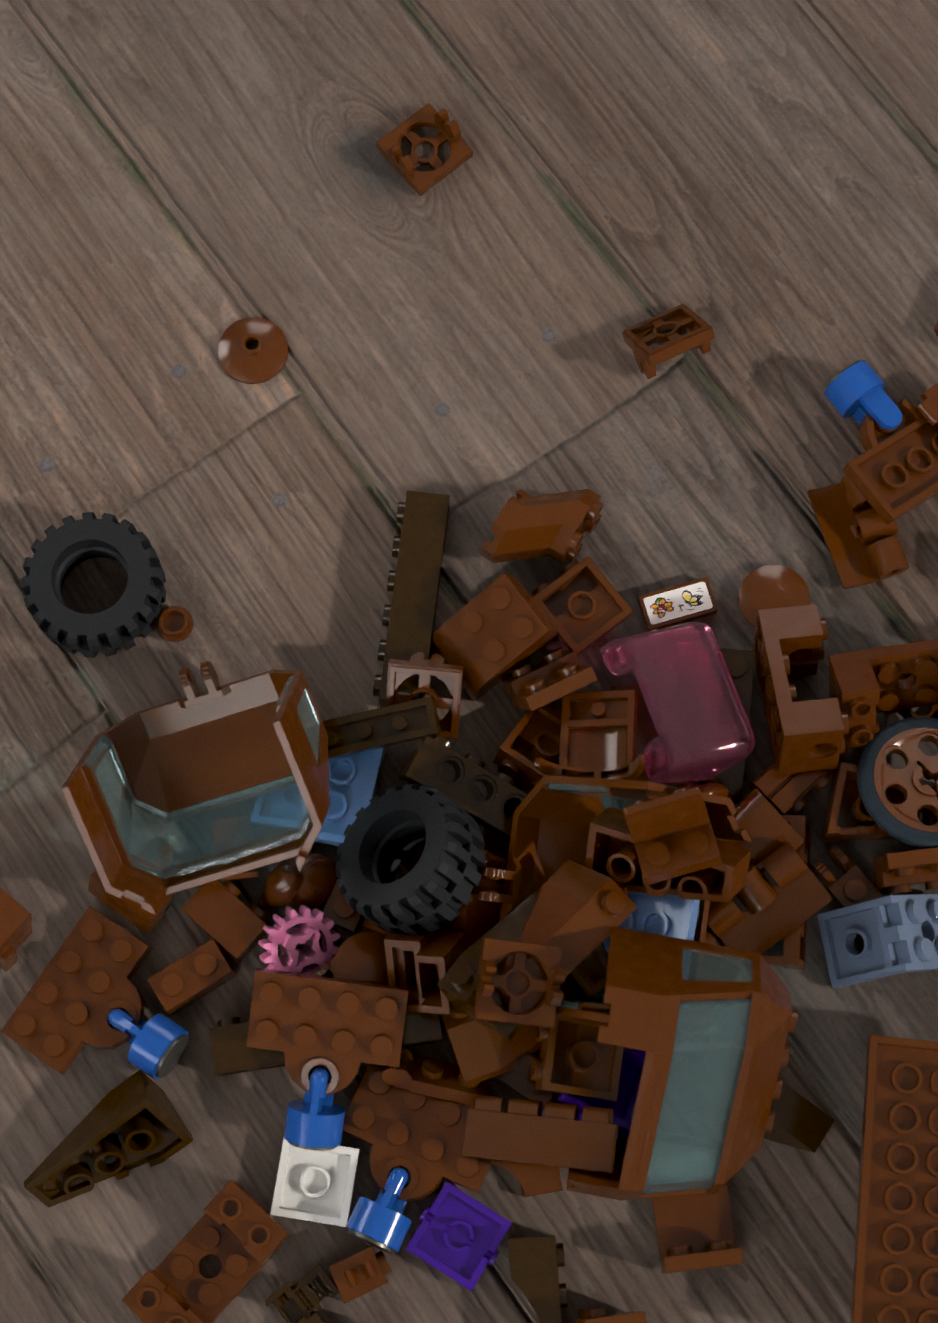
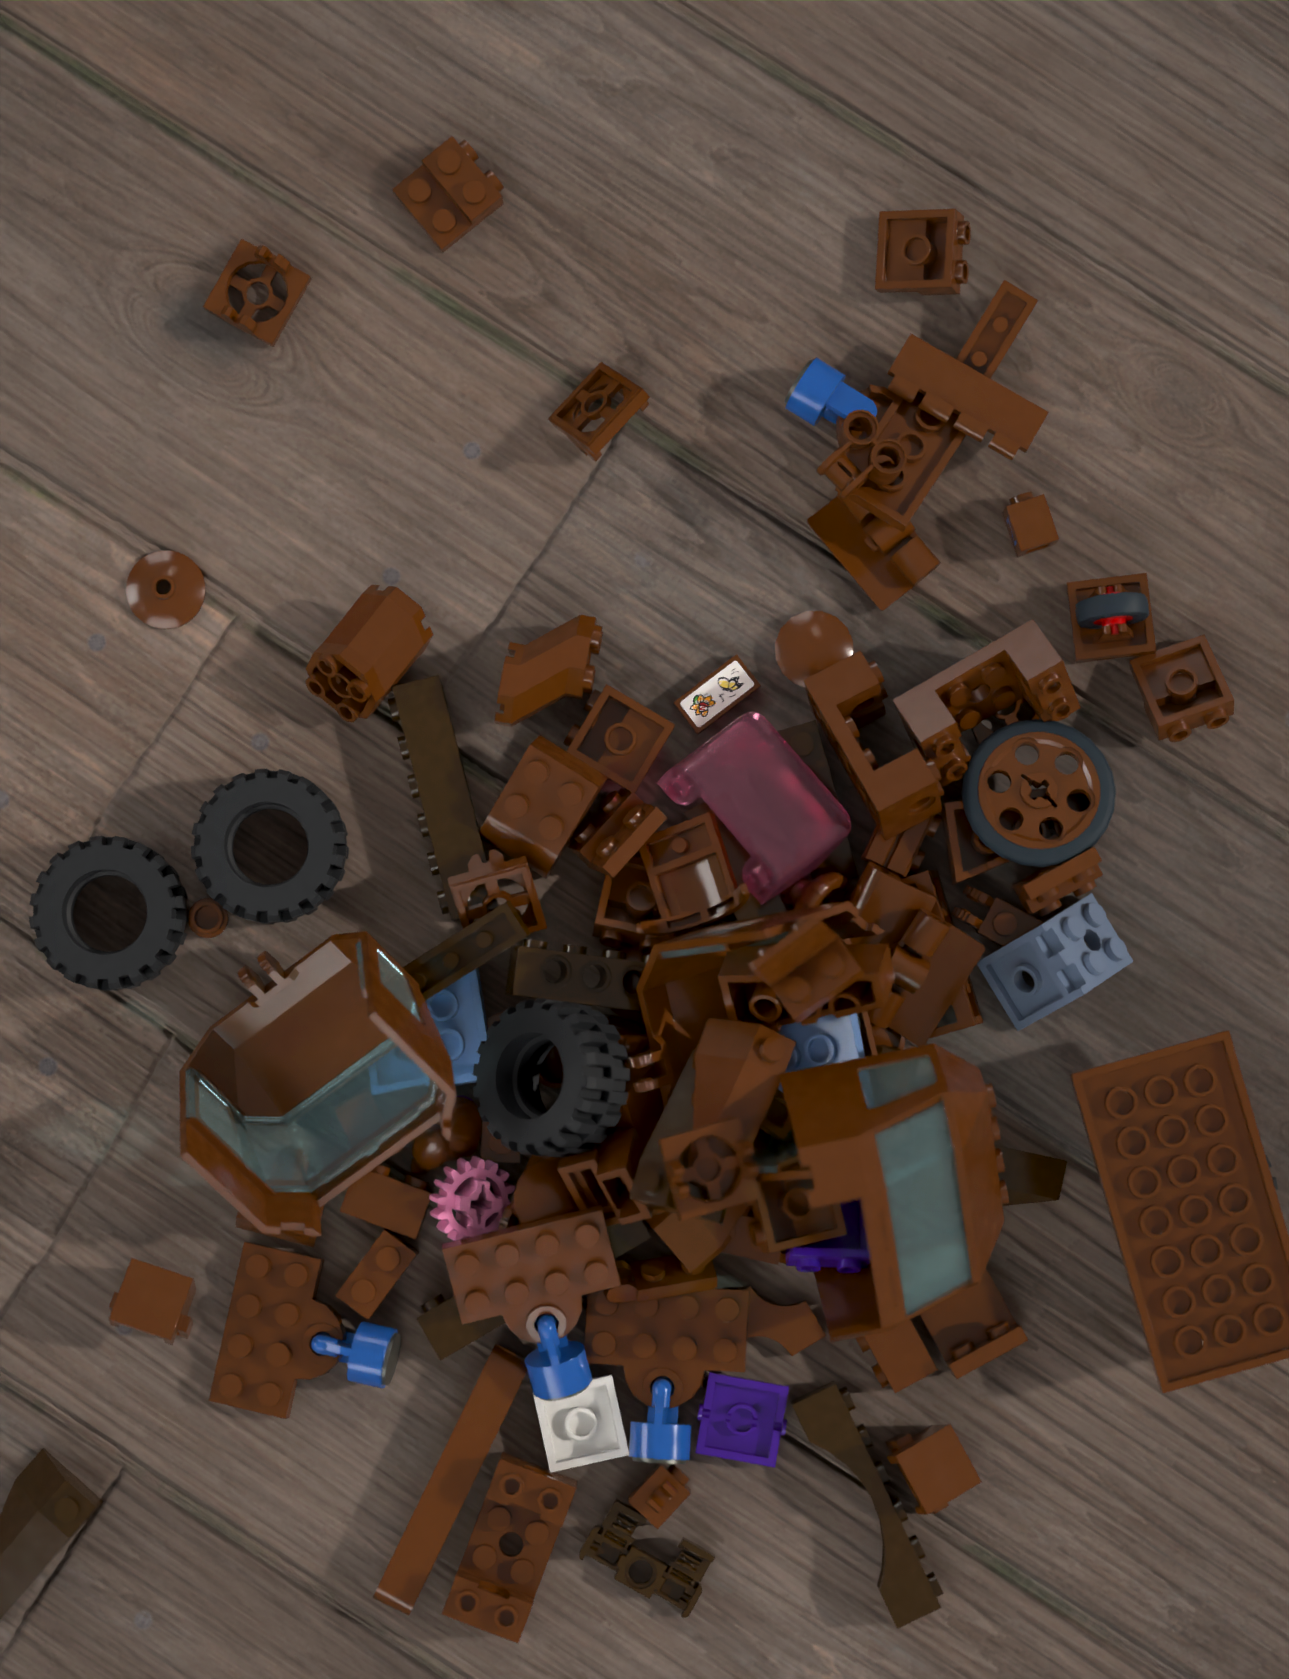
camera: 20 degrees left, 10 degrees up
(119, 1134) = (370, 1451): dark brown wedge -> none
(180, 1187) = (451, 1480): none -> reddish brown beam
(243, 537) = (216, 834): none -> black tyre
(398, 455) = (368, 652): none -> reddish brown brick
(538, 1140) = (785, 1302): reddish brown windscreen -> none
(612, 129) = (450, 193): none -> reddish brown plate
(620, 1230) = (899, 1356): none -> reddish brown brick
(872, 447) = (856, 459): none -> reddish brown piece

